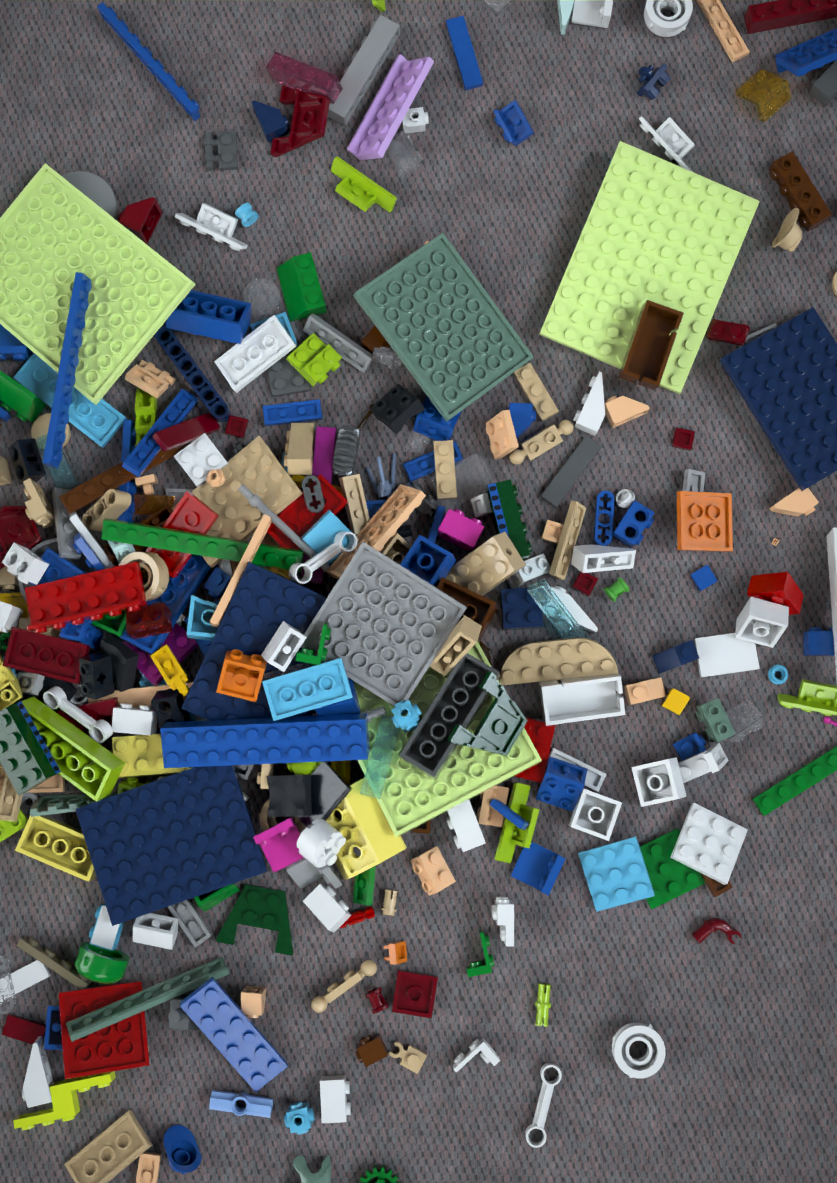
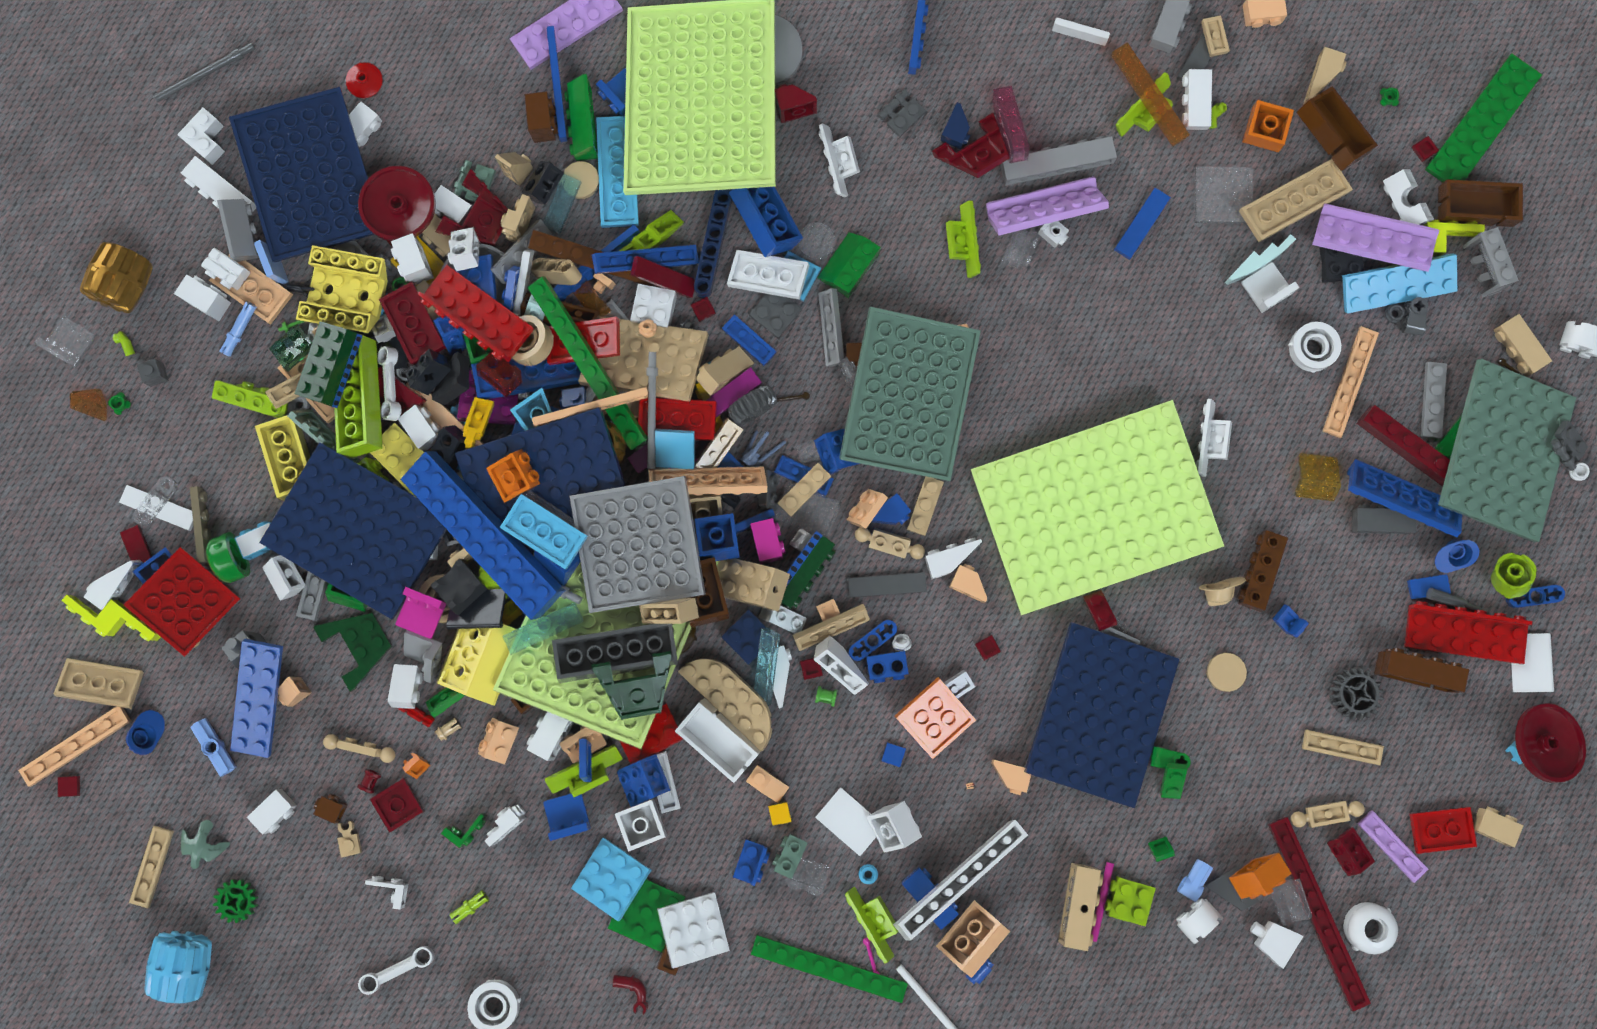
camera: 50 degrees right, 0 degrees up
(67, 368) = (630, 152): blue plate -> none
(146, 999) = (228, 613): sand green tile -> none
(149, 378) = (678, 217): light nougat plate -> none
(246, 214) = (869, 175): medium azure wheel -> none
(283, 646) = (559, 486): white brick -> none
(302, 1111) = (243, 794): medium azure brick -> none
(307, 654) = (568, 511): green bracket -> none
(314, 360) = (802, 321): lime plate -> none
(317, 492) = (692, 406): dark grey beam -> none
(320, 843) = (442, 639): white brick -> none
(323, 557) = (653, 457): white piece -> none
(397, 408) = (818, 413): black brick -> none
(408, 722) = (586, 626): medium azure brick -> none
(514, 123) = (1118, 308): blue bracket -> none
(650, 344) = (1033, 560): reddish brown piece -> none
(658, 75) = (1240, 385): dark blue hips -> none
(659, 782) = (705, 852): white brick -> none
(675, 656) = (813, 784): dark blue slope -> none
(702, 763) = (747, 872): white bracket -> none
(778, 589) = (929, 817): red brick -> none

